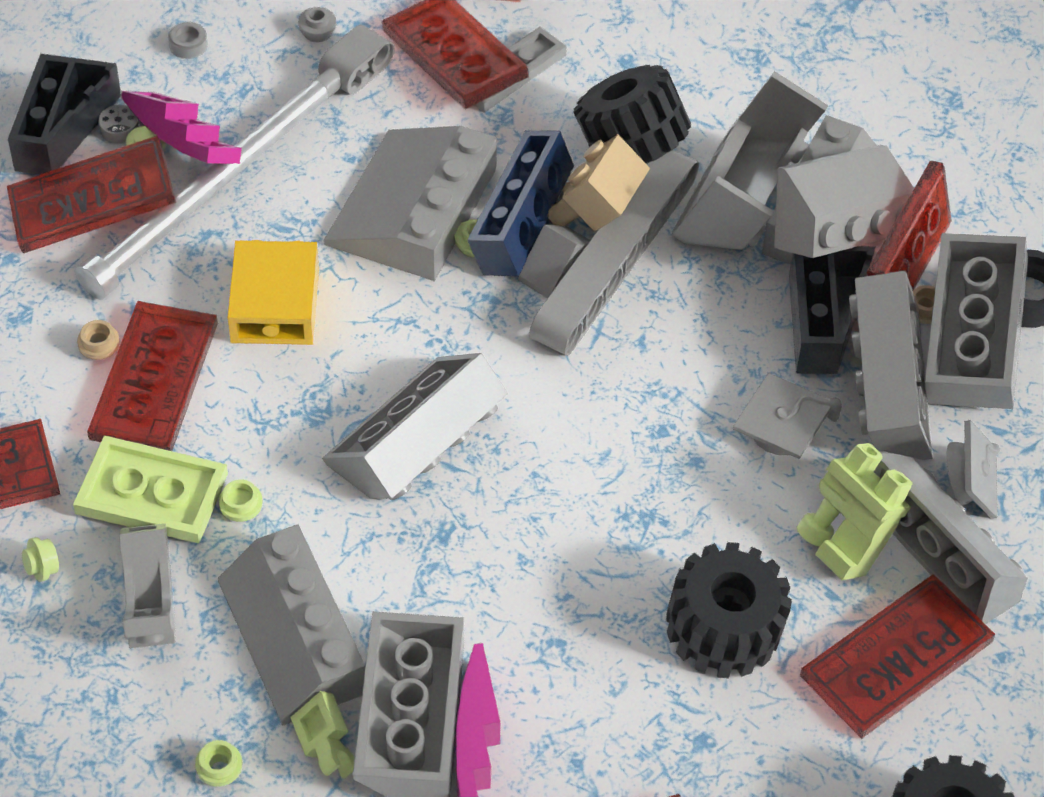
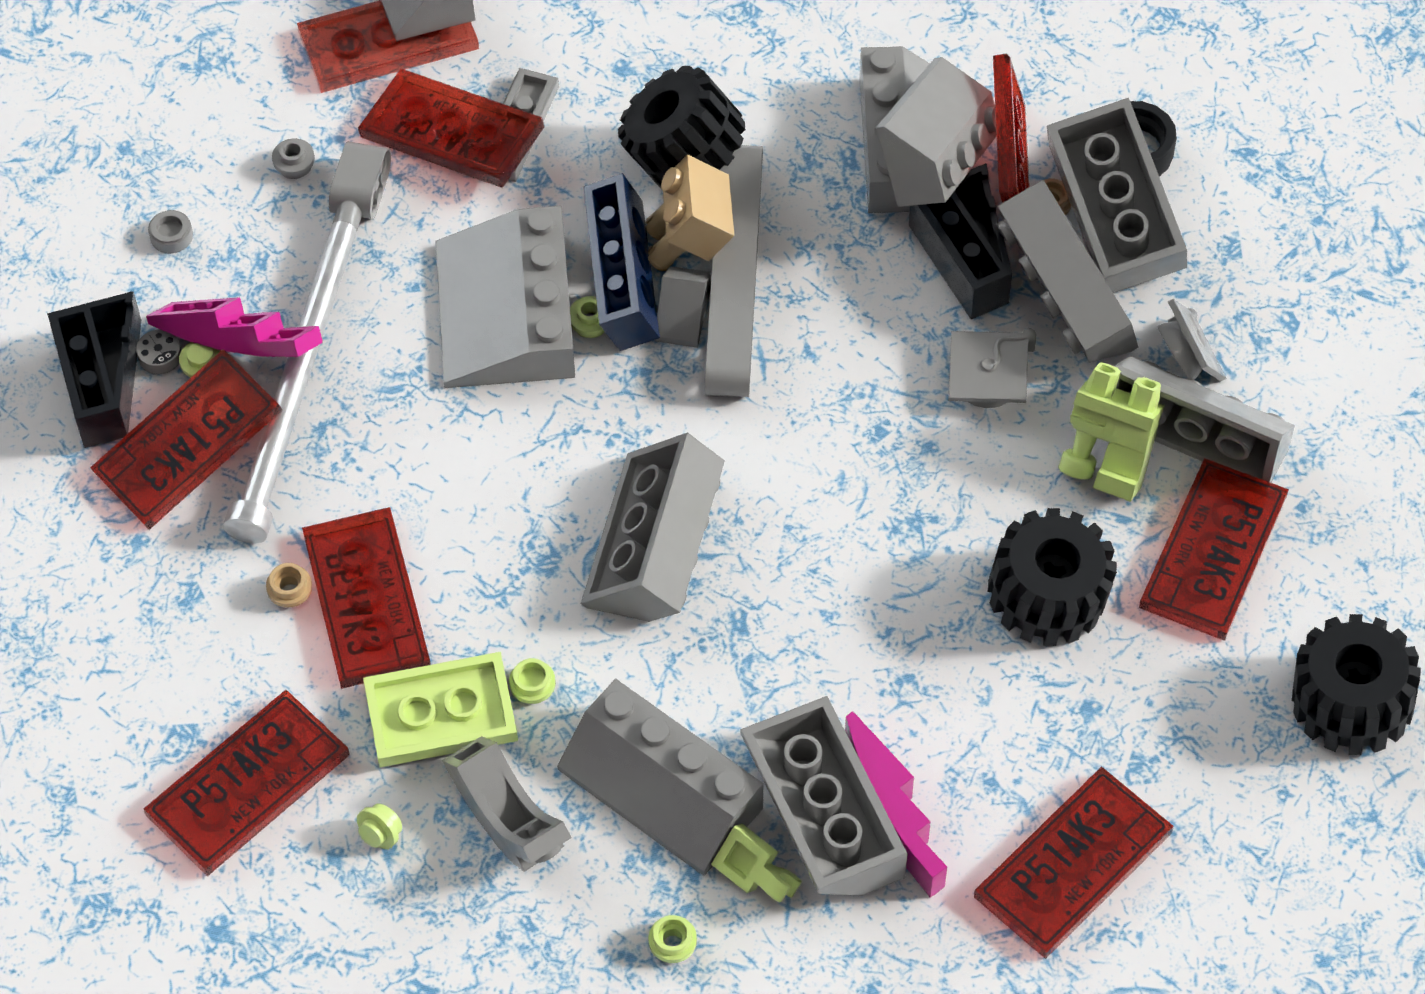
camera: 25 degrees left, 5 degrees up
(273, 292) = (433, 458): yellow brick -> none
(733, 191) = (810, 136): light grey windscreen -> none

